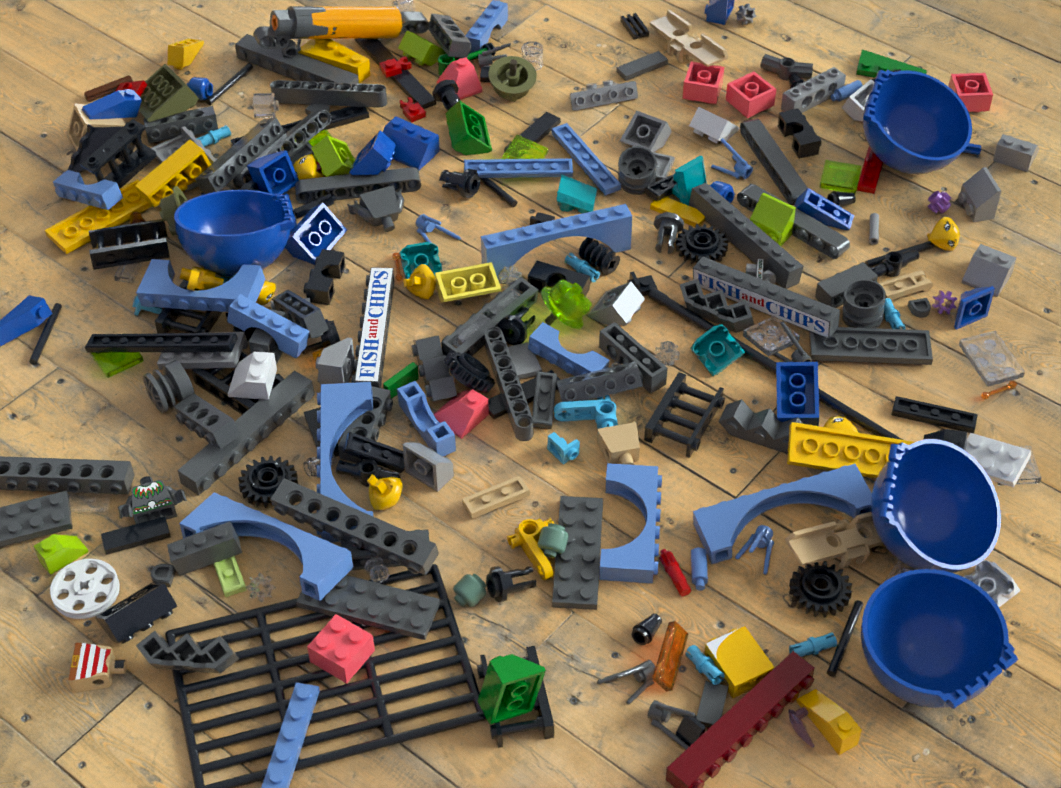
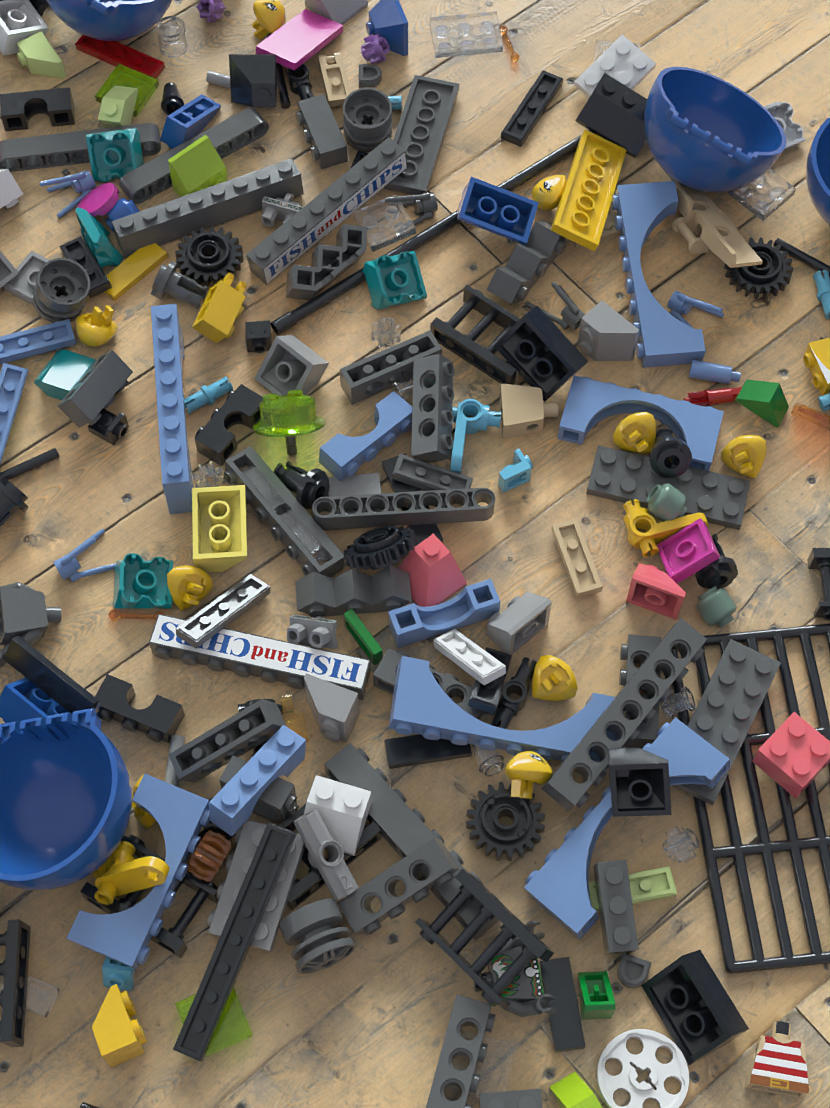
camera: 80 degrees left, 15 degrees up
(103, 302) = (116, 1031): none -> yellow slope
(140, 550) = (595, 995): none -> green slope
(177, 476) = (511, 928): none -> black fence
(187, 654) = (789, 936): dark grey brick -> none
(211, 383) = (334, 871): none -> light grey piece
(215, 320) = (209, 856): none -> dark orange gear
(290, 527) = (639, 783): none -> black slope
(300, 473) = (524, 771): none -> yellow piece
(335, 227) = (48, 677): none -> black tile
(391, 437) = (469, 656): none -> white tile
(396, 350) = (312, 631): none -> light grey hips
(403, 300) = (223, 611): none -> tile
(474, 543) = (655, 591): none -> coral slope
(511, 559) = (688, 551): none -> dark pink tile
(560, 202) = (96, 389): none -> dark grey brick
(595, 534) = (669, 455): none -> black piece
(599, 256) = (201, 367): black piece -> none
(616, 195) = (96, 327): none -> yellow piece
(618, 518) = (636, 433): none -> yellow piece
(619, 595) = (745, 455): none -> yellow piece
(646, 629) = (790, 439): black cone -> none
(655, 256) = (220, 309): none -> yellow hinge
(672, 440) = (541, 352): none -> black slope
(677, 604) = (764, 400): none -> green slope
(705, 479) = (607, 335): none -> light grey slope
(724, 464) = (571, 313): none -> dark grey plant
(725, 177) = (100, 199): none -> dark pink tile
(772, 175) = (114, 153): none -> teal slope
(815, 169) = (118, 106): none -> yellowish green slope
(848, 124) = (40, 56): none -> yellowish green slope
(874, 236) = (253, 79): none -> black slope
(899, 186) = (172, 36): none -> clear piece
(929, 254) = (300, 38): none -> tile

